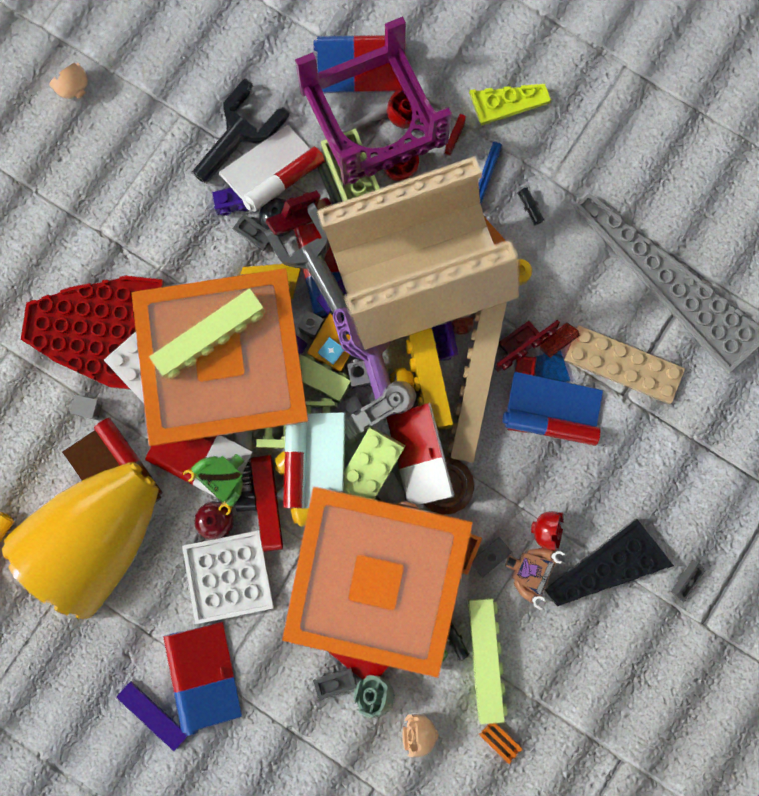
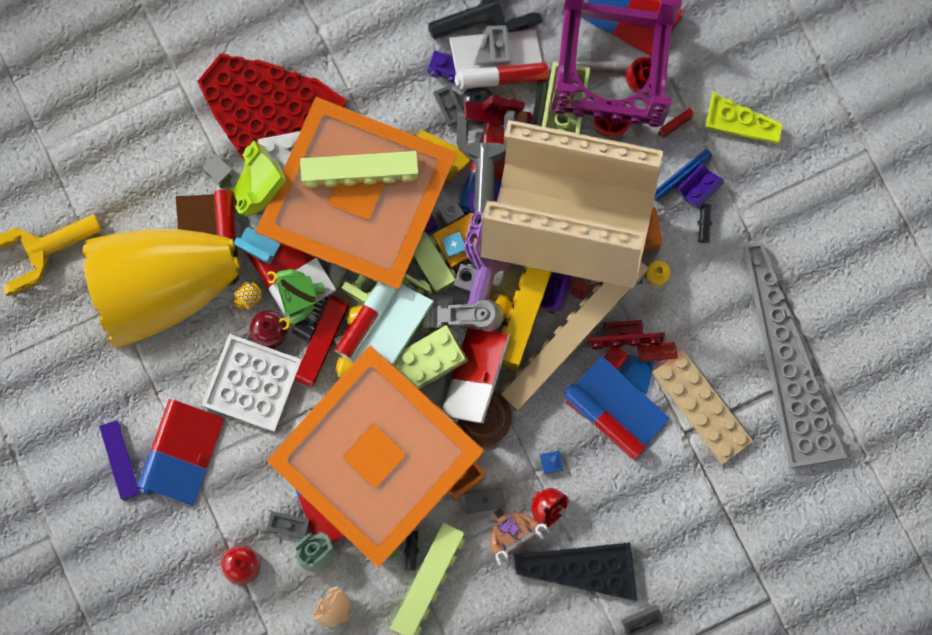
camera: 25 degrees right, 5 degrees down
(125, 395) = (258, 180): none -> lime slope
(159, 455) = (257, 245): none -> medium azure panel
(177, 502) = (247, 295): none -> yellow head
(262, 158) = (494, 47): none -> light grey wing
(314, 744) = (240, 565): none -> red cylinder
(508, 176) = (700, 186): none -> dark purple bracket
(527, 489) = (551, 462): none -> blue tile

